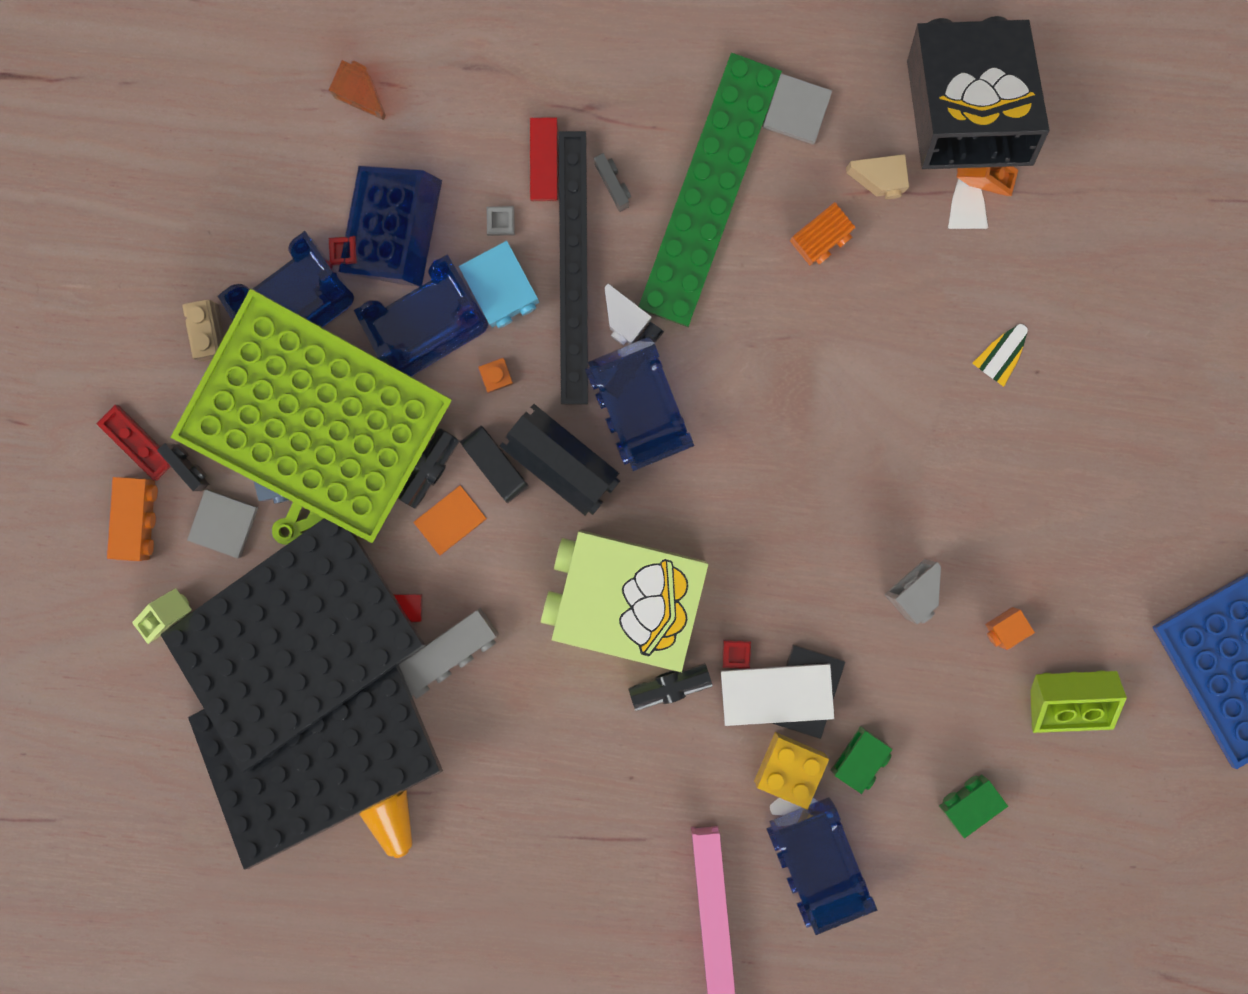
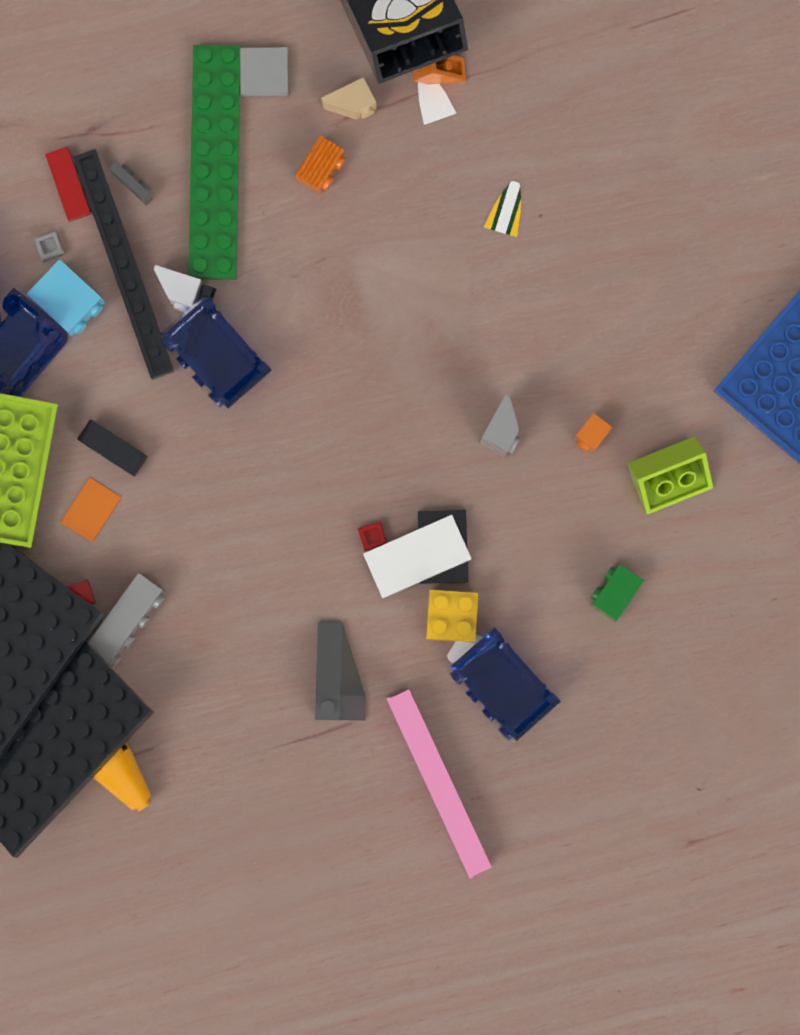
camera: 20 degrees left, 5 degrees down
(428, 468) = (58, 470): black piece -> none
(495, 375) = (88, 374): orange plate -> none
(560, 460) = (166, 423): black brick -> none
(625, 599) = (259, 519): yellowish green brick -> none
(646, 797) = (337, 679): none -> dark grey wedge
(670, 687) = (325, 582): black piece -> none
(862, 760) = (509, 586): green brick -> none

